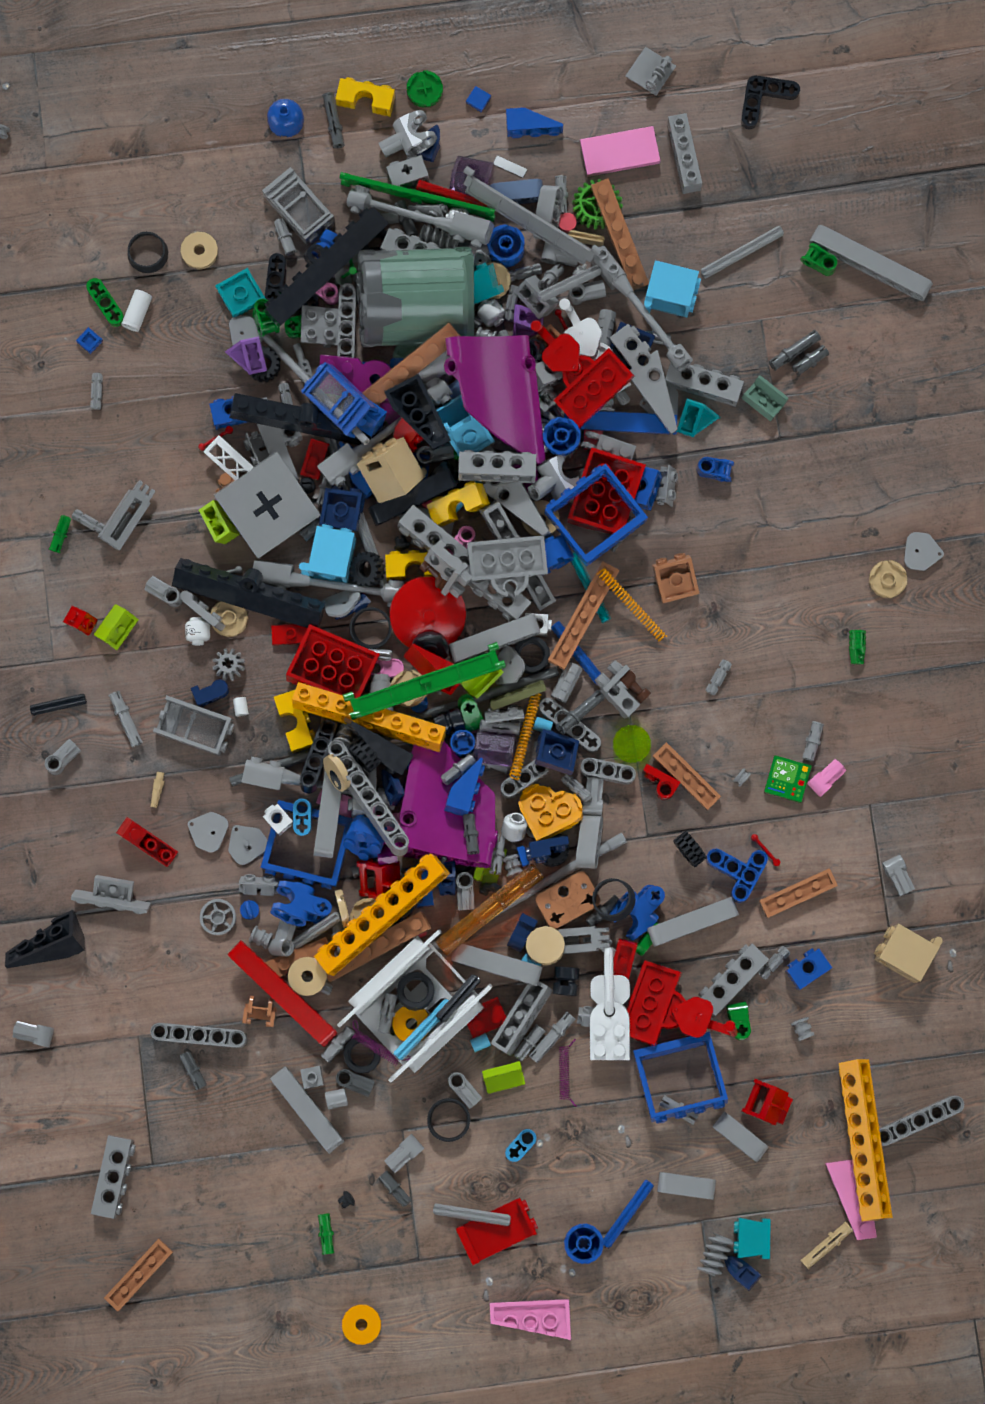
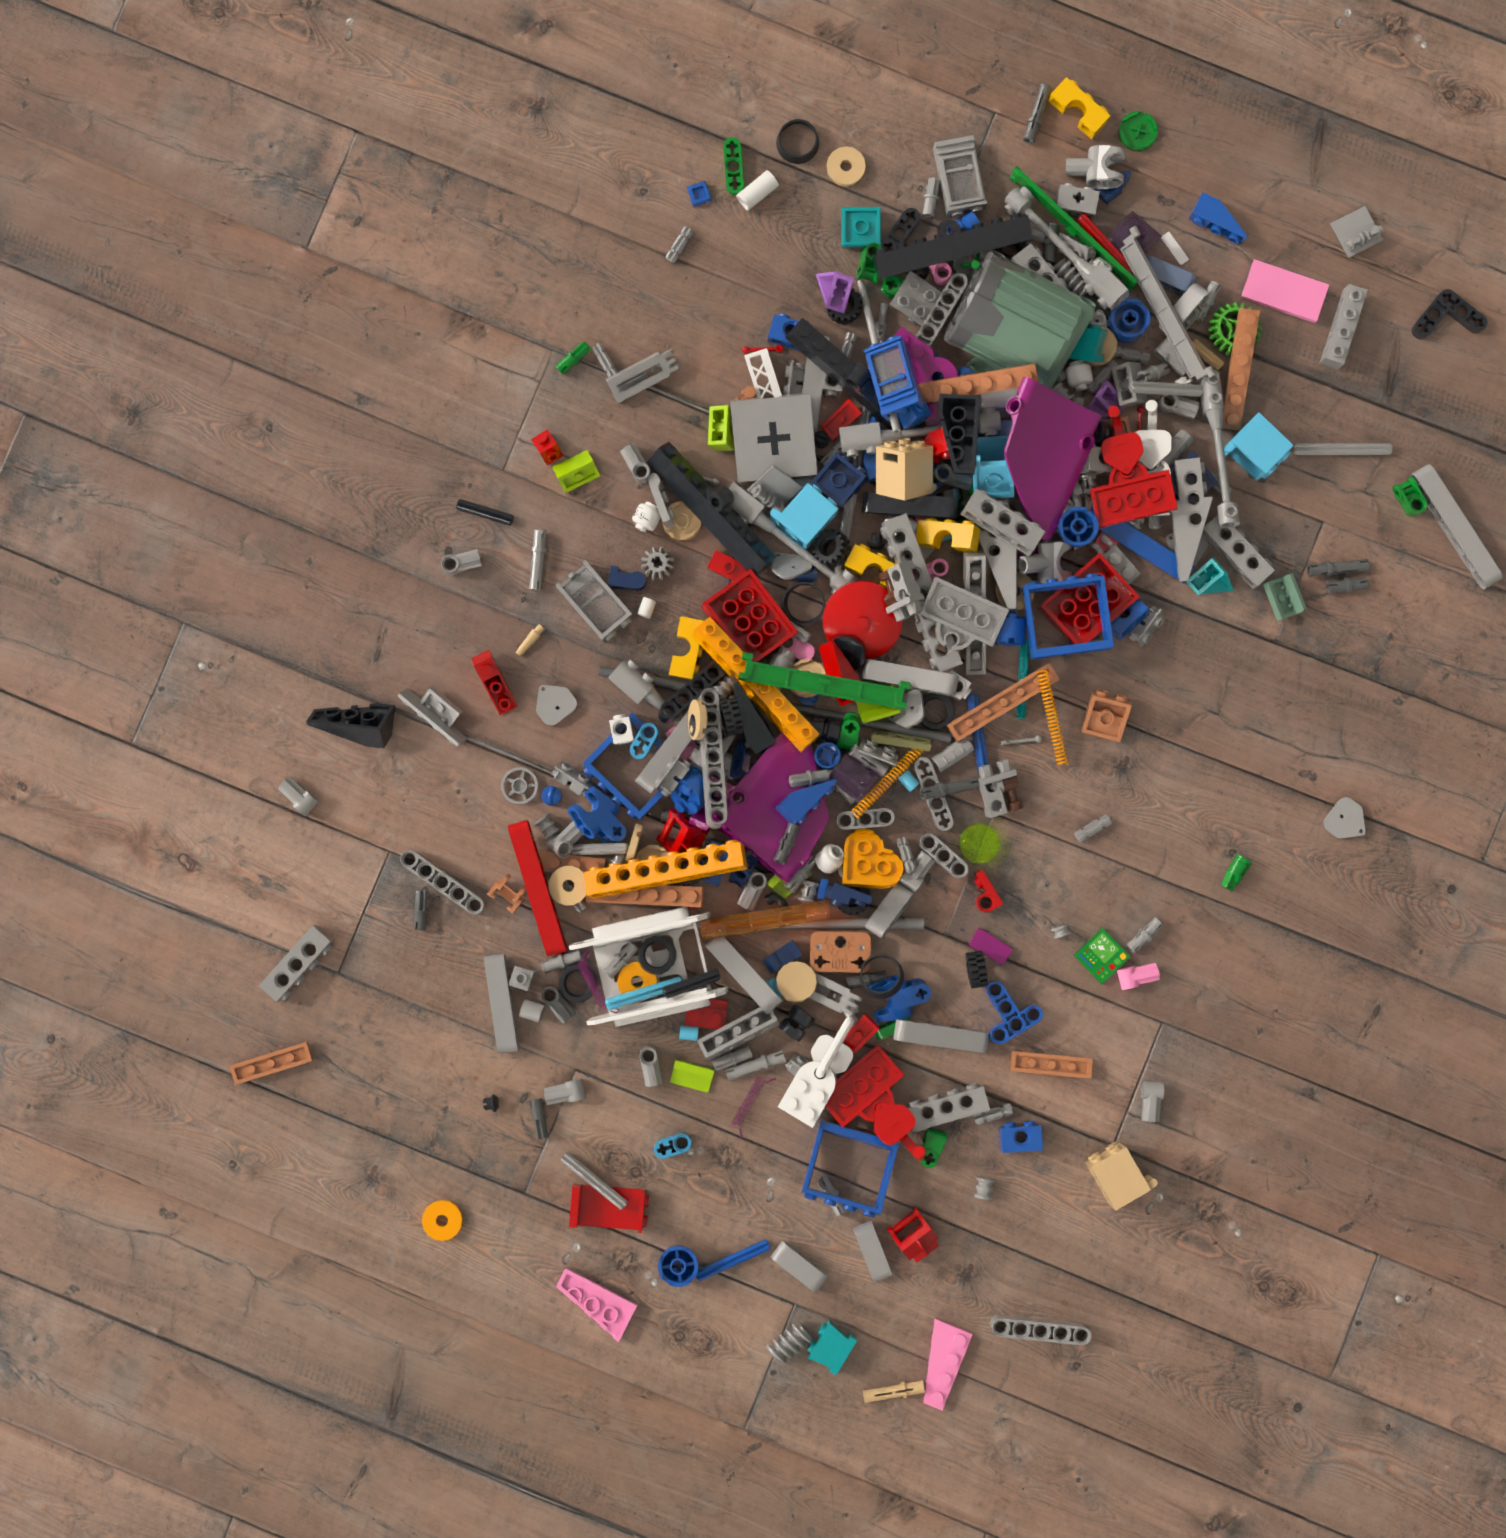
camera: 30 degrees right, 5 degrees up
(242, 839) = (579, 729): light grey piece -> none
(243, 325) = (847, 258): light grey piece -> none
(285, 117) = (994, 86): blue cylinder -> none
(292, 546) = (774, 489): none -> light grey hinge
(326, 1233) = (456, 1122): green pin -> none
(340, 839) = (666, 781): none -> light grey hinge
(430, 1123) = (615, 1104): black tyre -> none
(478, 99) = (1182, 168): blue tile -> none
(556, 751) = (907, 812): dark blue plate -> none
(567, 222) = (1197, 330): coral tile -> none
(630, 629) = (1038, 739): none -> light grey hinge
(688, 777) = (1012, 901): nougat plate -> none
(691, 823) = (990, 946): none -> magenta tile
(716, 469) = (1202, 637): blue piece -> none
(742, 1272) = (804, 1371): dark blue plate -> none
(776, 862) = (1047, 1024): red hinge -> none
(858, 1085) = (984, 1331): light orange brick -> none
(888, 579) = (1299, 827): tan tile -> none

